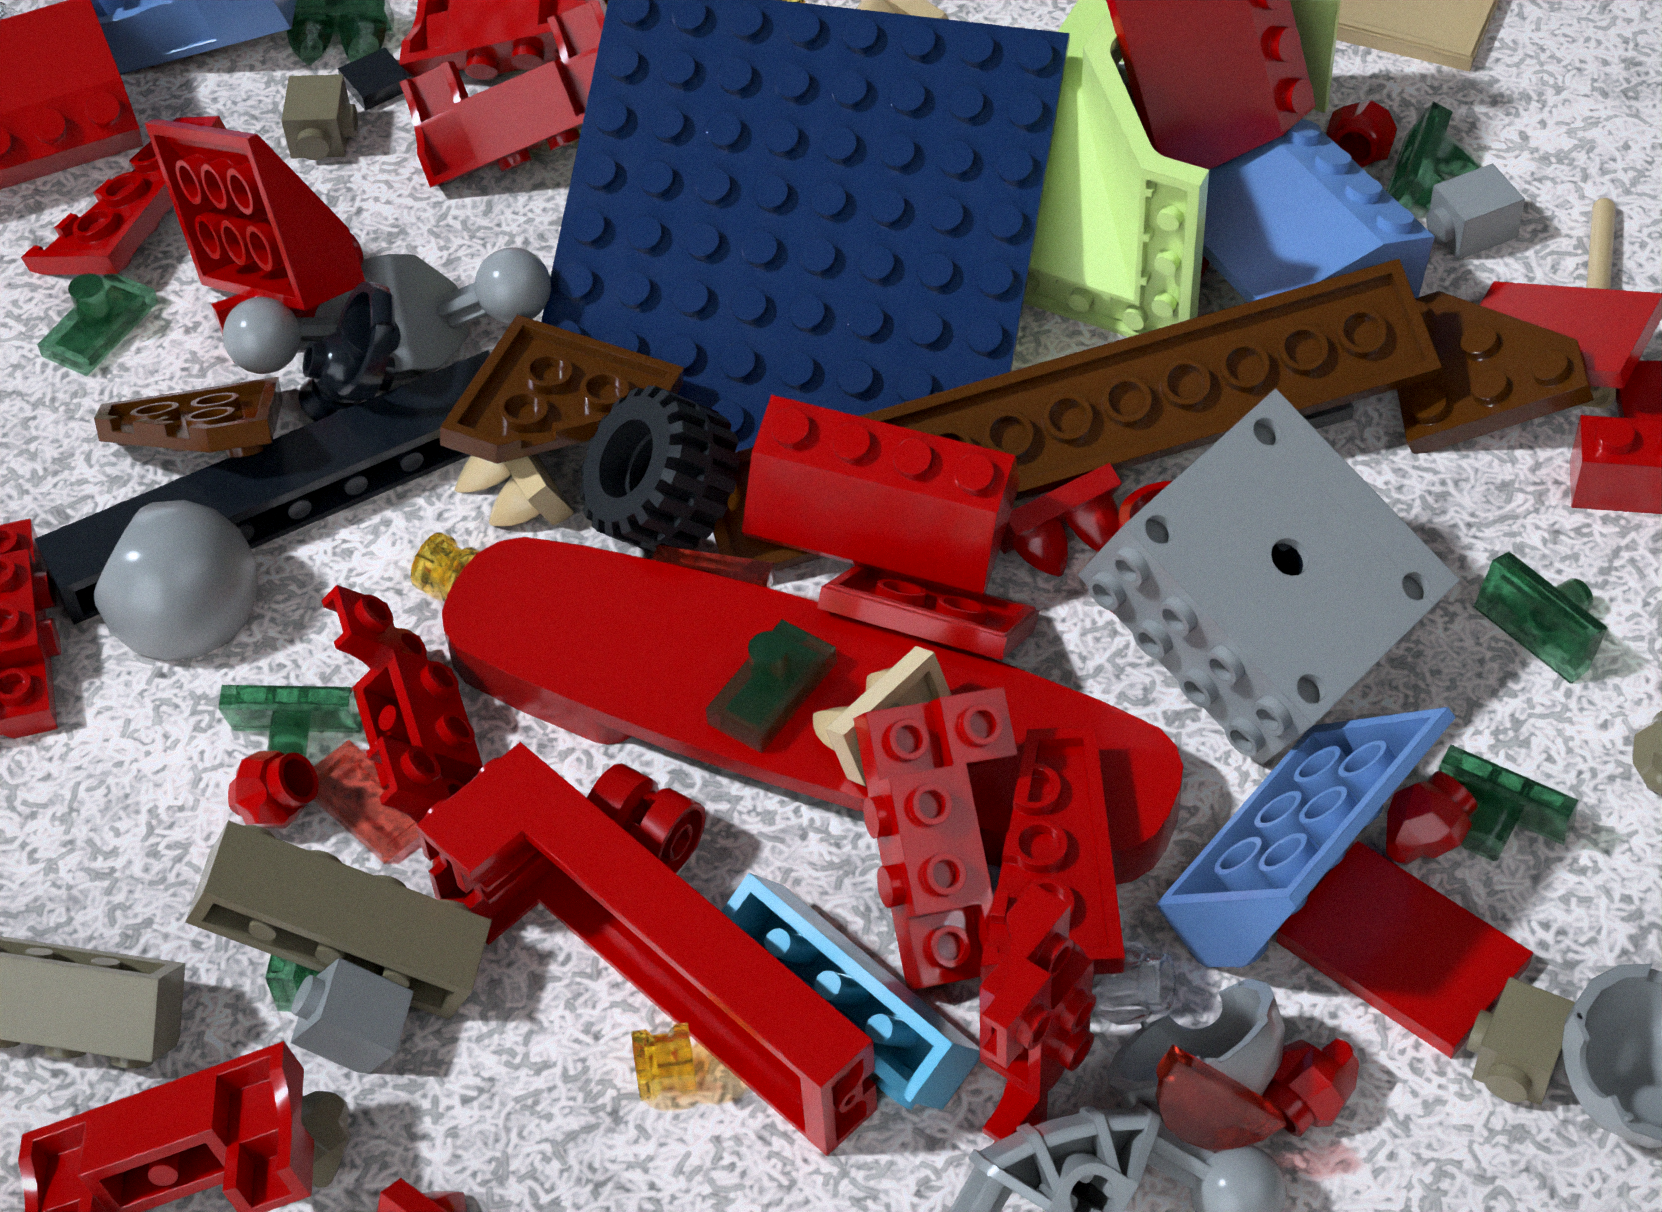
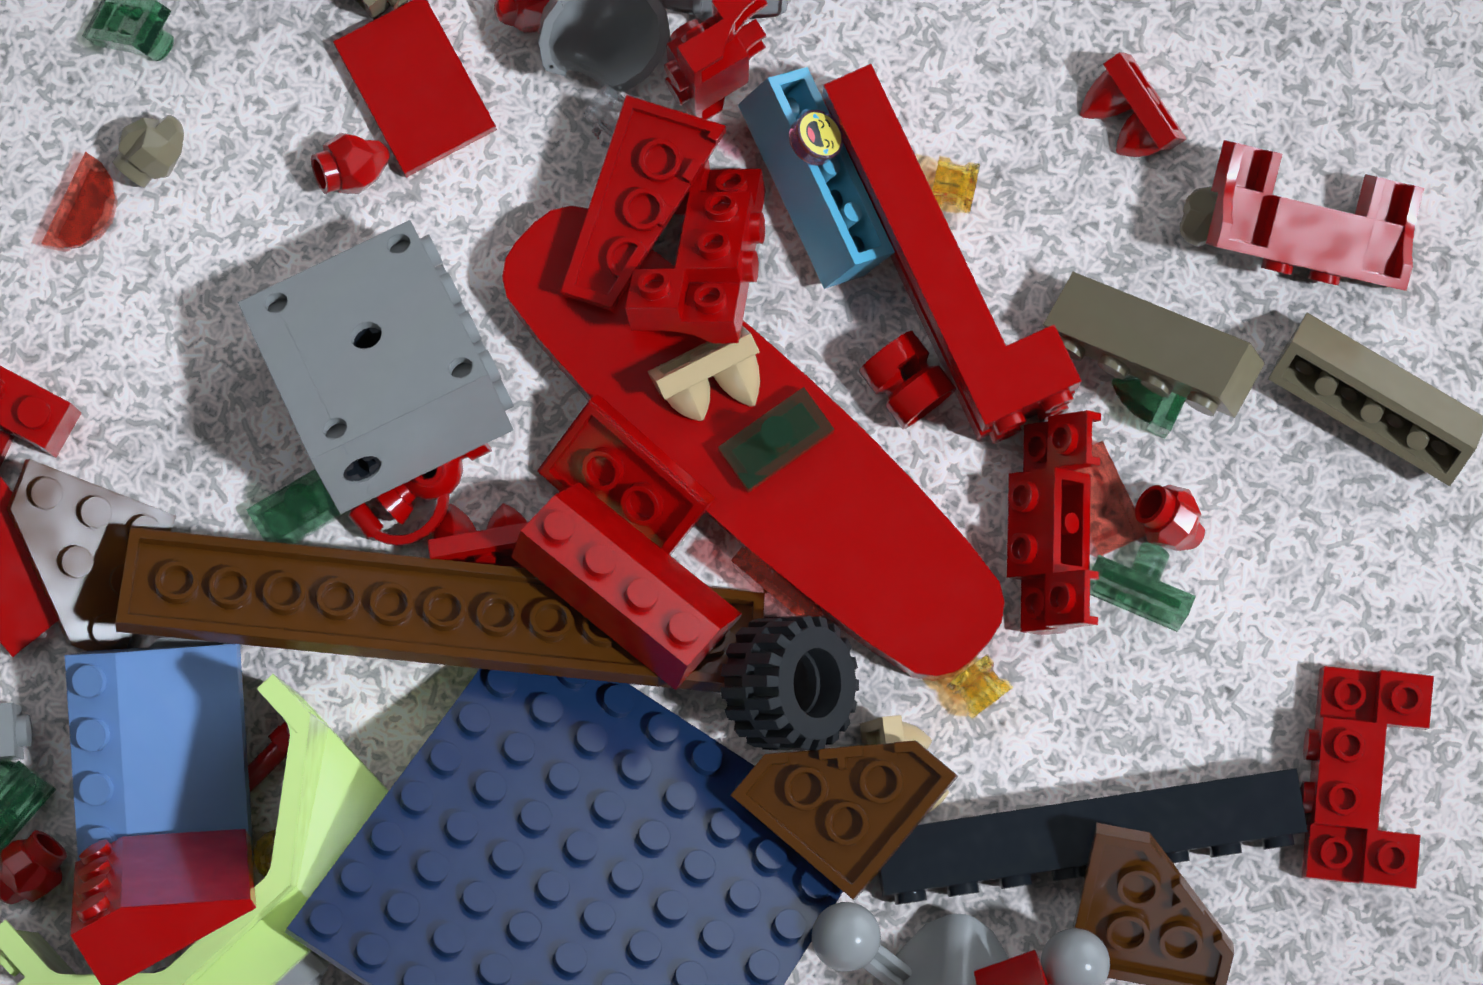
camera: 165 degrees left, 30 degrees up
(177, 582) = (1199, 742): light grey cylinder -> none
(350, 1016) = (1163, 284): light grey brick -> none
(355, 358) = (1001, 908): black piece -> none
(860, 990) = (816, 137): none -> tile
(1293, 833) = (454, 146): medium blue slope -> none
(1507, 801) = (288, 159): clear green tile -> none
(1541, 616) = (167, 305): clear green tile -> none

